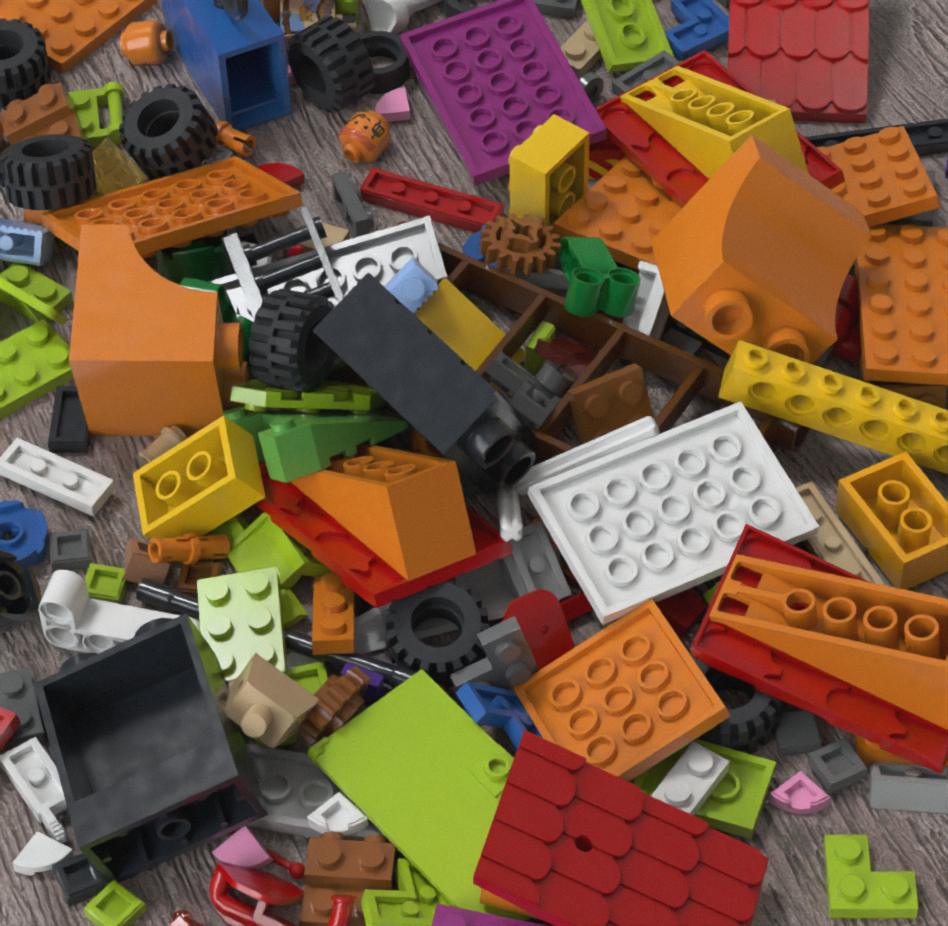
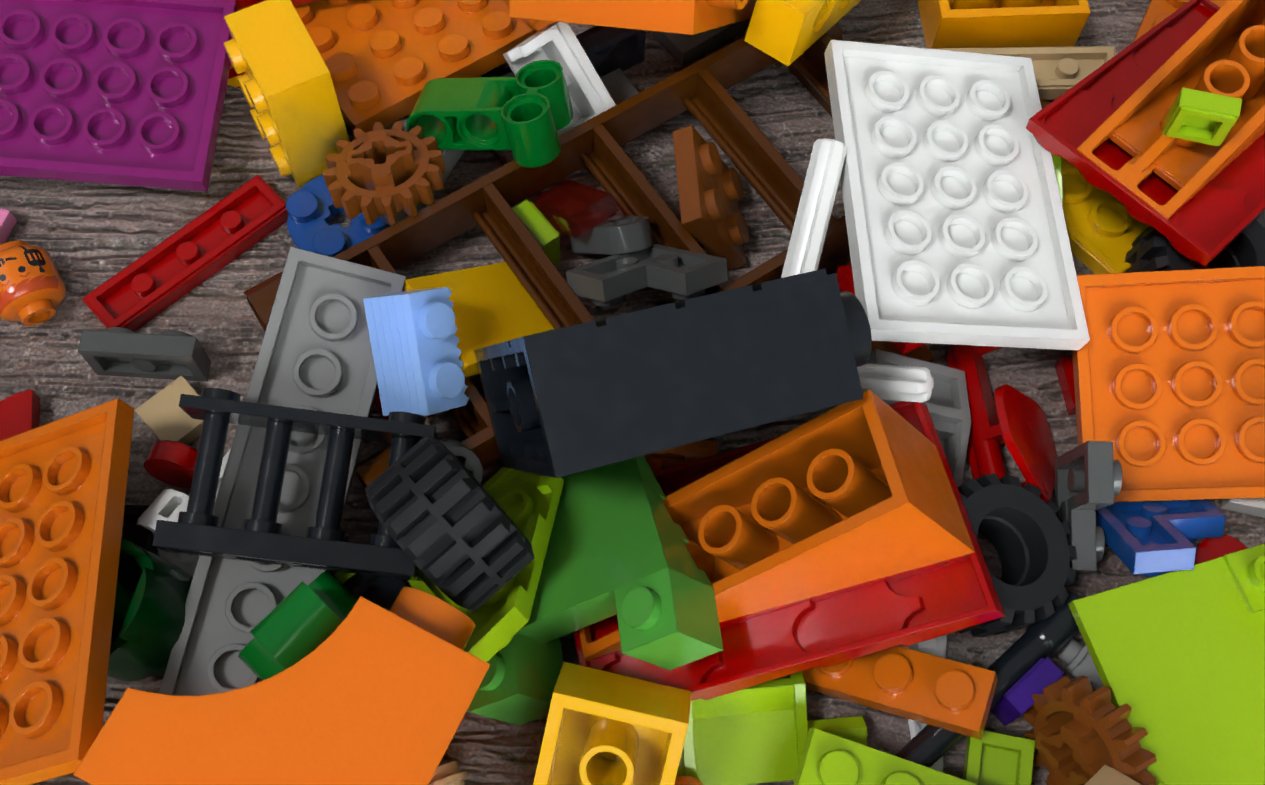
camera: 70 degrees left, 15 degrees up
(782, 592) = (1201, 116): none -> lime tile

